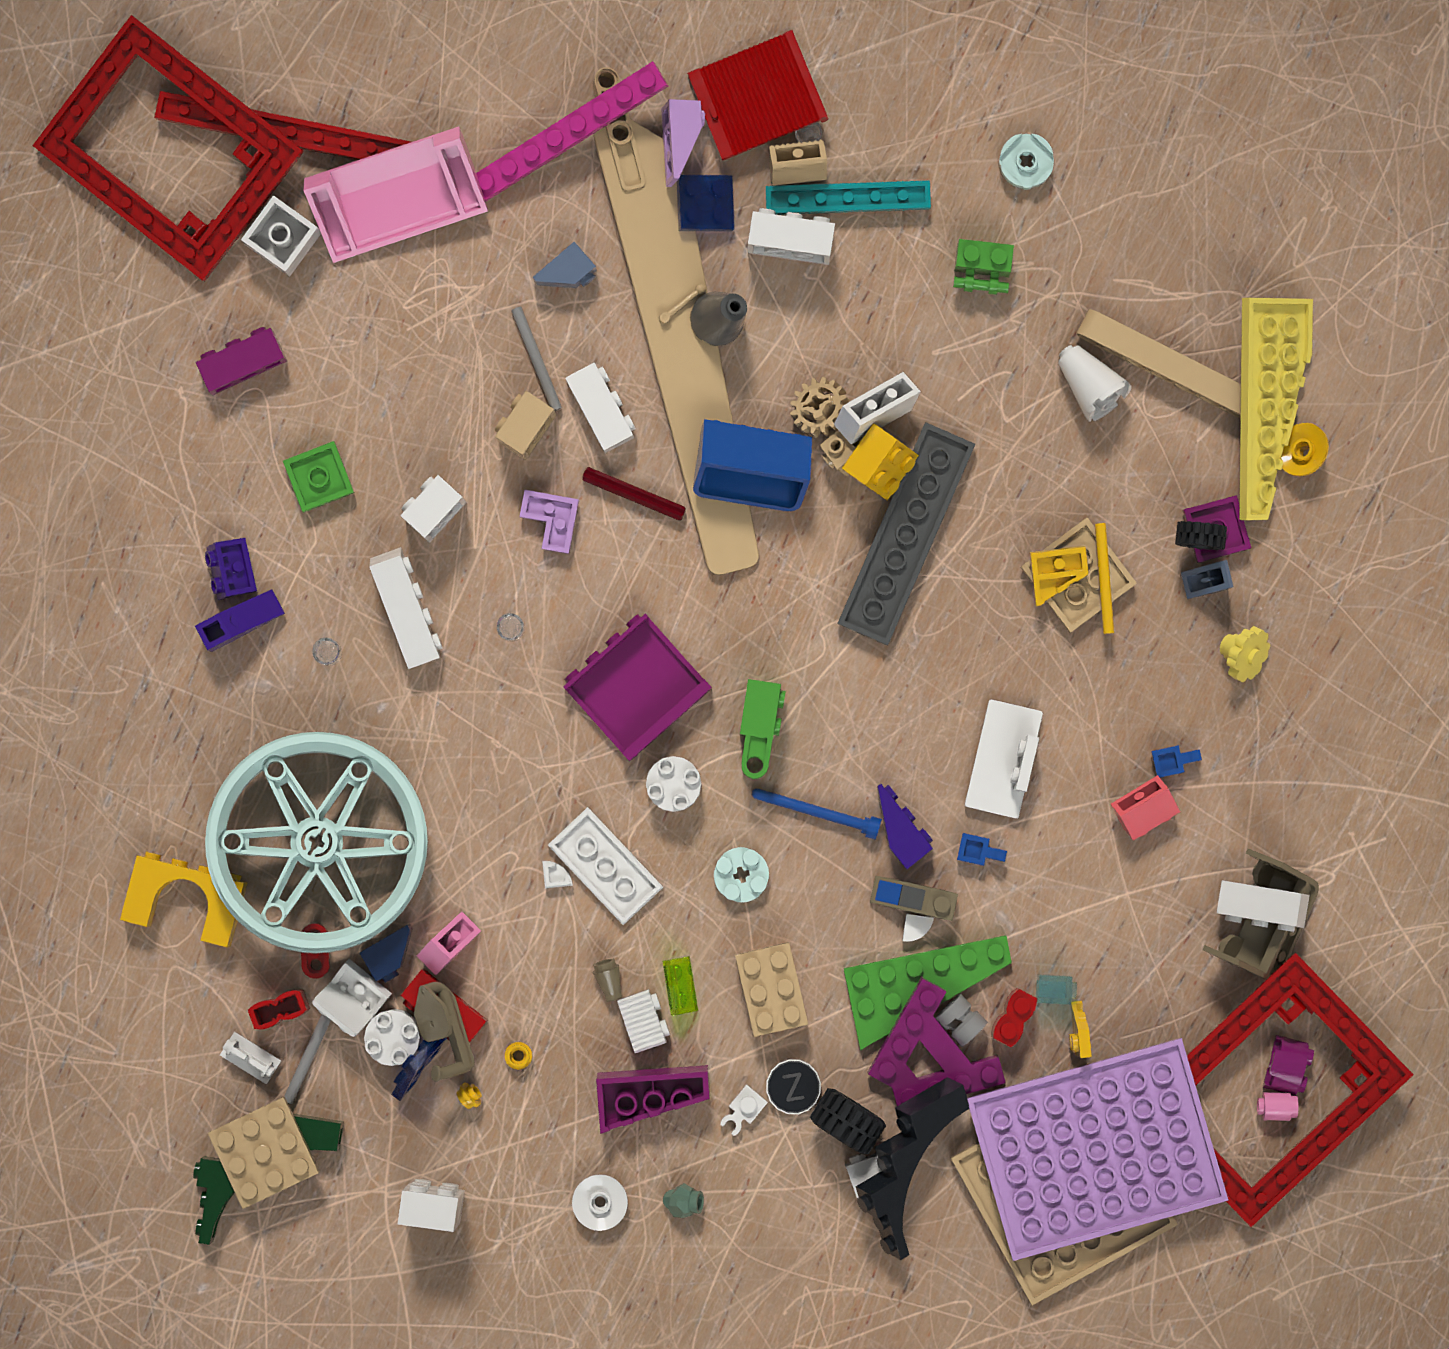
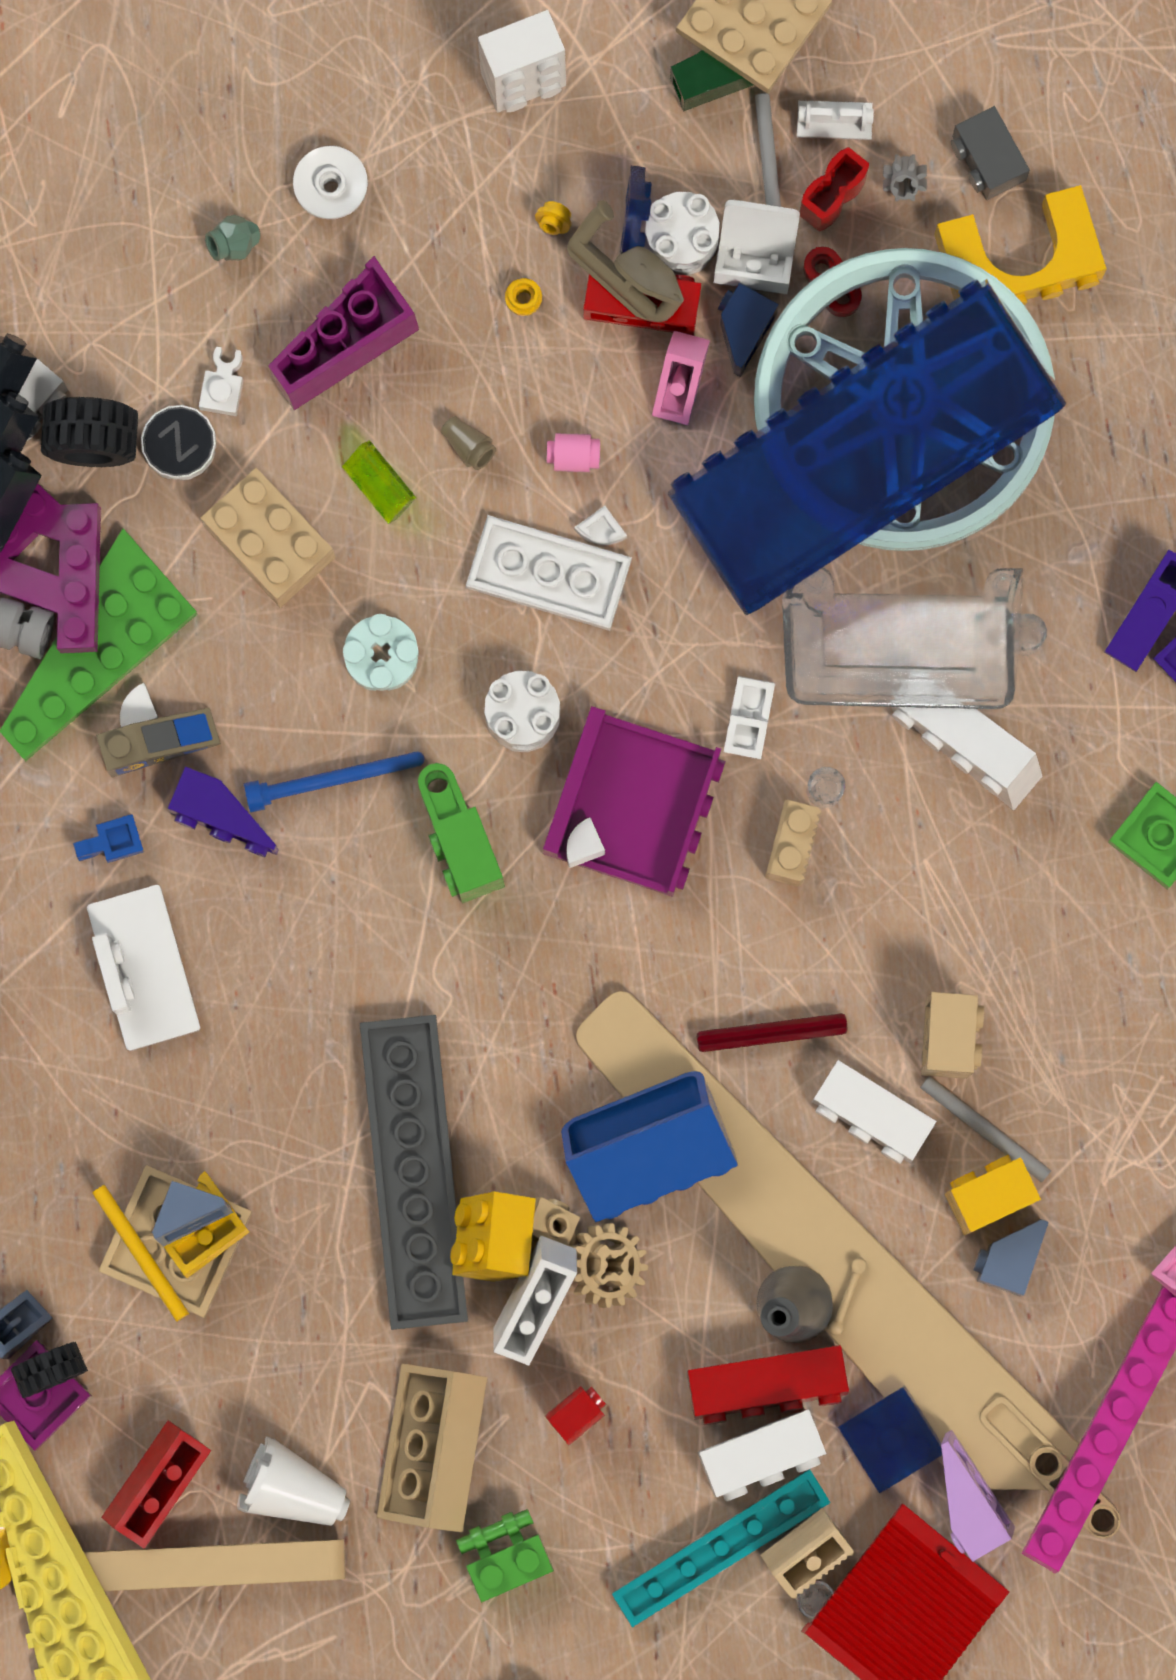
camera: 145 degrees right, 5 degrees down
(165, 976) = (989, 153): none -> dark grey brick
(228, 991) = (905, 177): none -> light grey gear
(359, 818) = (866, 446): none -> clear blue windscreen
(410, 686) = (903, 646): none -> clear windscreen
(432, 508) = (1002, 872): white brick -> none
(532, 700) = (749, 717): none -> white slope
(545, 933) = (574, 452): none -> bright pink brick
(552, 603) = (793, 843): none -> tan brick
(557, 313) = (992, 1195): none -> yellow brick
(557, 513) = (853, 956): lavender plate -> none
(643, 1021) = (399, 416): white brick -> none
(683, 677) = (584, 844): none -> white tile
(761, 278) = (767, 1383): none -> red brick
(890, 325) = (576, 1414): none -> red brick
(990, 358) = (432, 1448): none -> tan slope
(1062, 584) = (186, 1212): none -> sand blue slope
(1173, 431) = (156, 1484): none -> red brick

